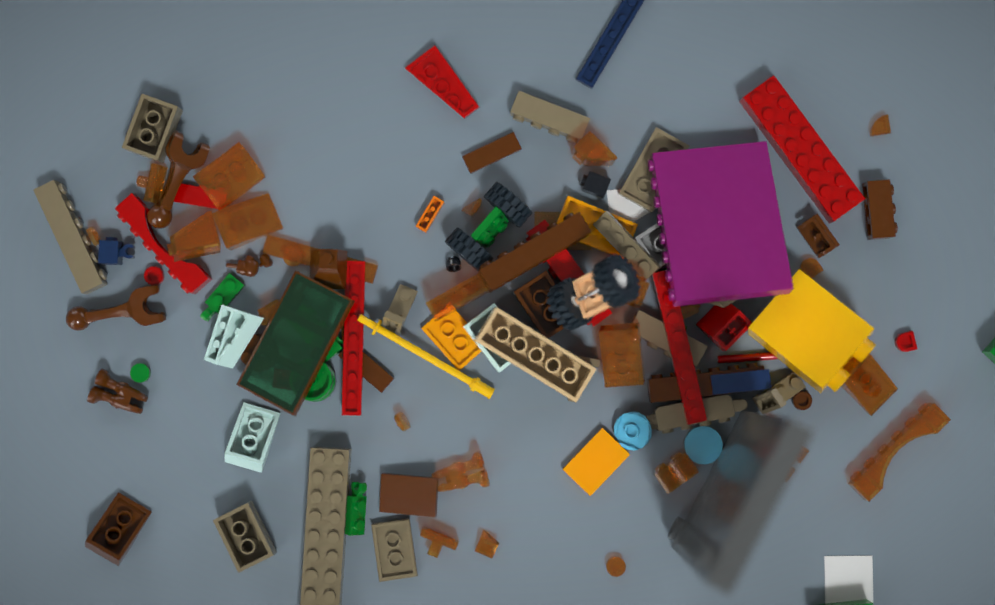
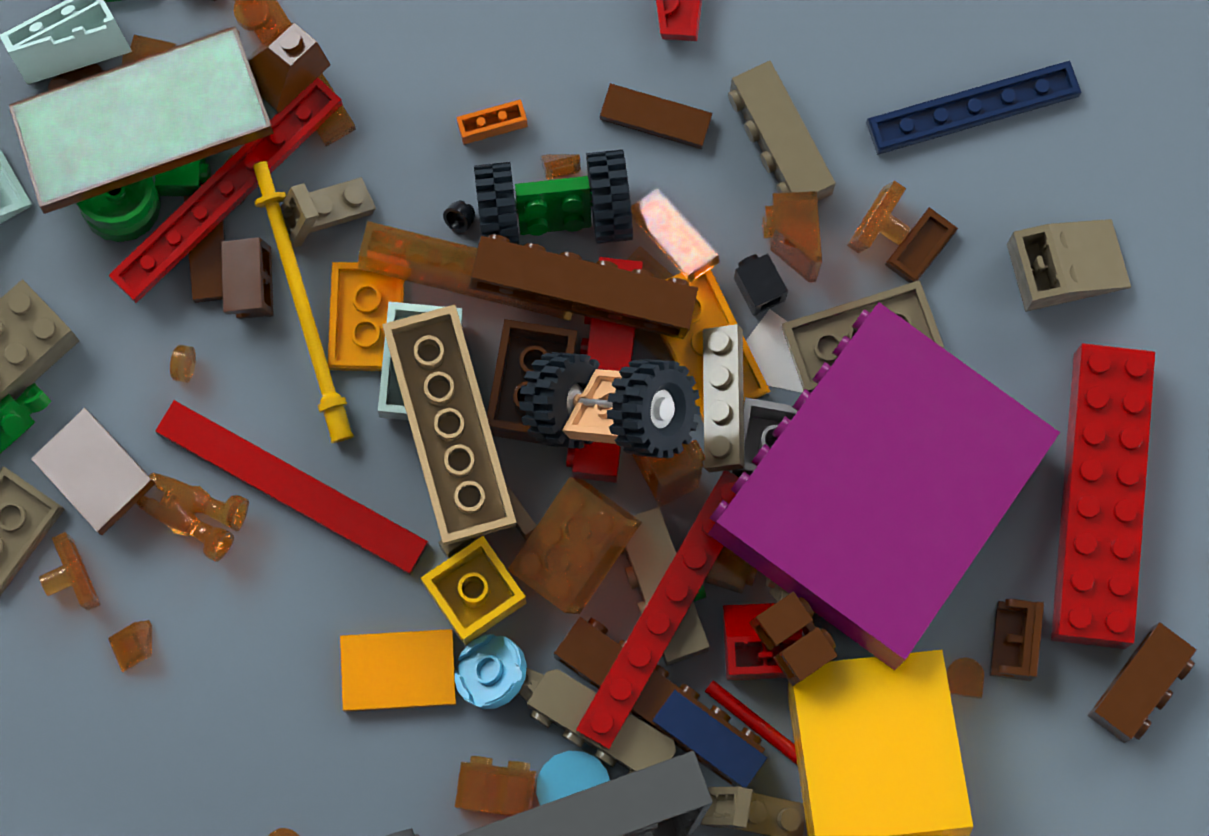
camera: 40 degrees right, 10 degrees down
(394, 365) = (247, 278): none -> reddish brown hinge
(489, 430) = (292, 487): none -> red tile
(546, 196) = (674, 235): none -> clear orange tile
(599, 407) = (474, 590): none -> yellow brick
(618, 116) = (881, 220): none -> clear orange tile
(643, 111) = (921, 246): none -> reddish brown tile
(706, 67) = (1066, 262): none -> dark tan slope
(747, 318) = (783, 621): none -> reddish brown piece

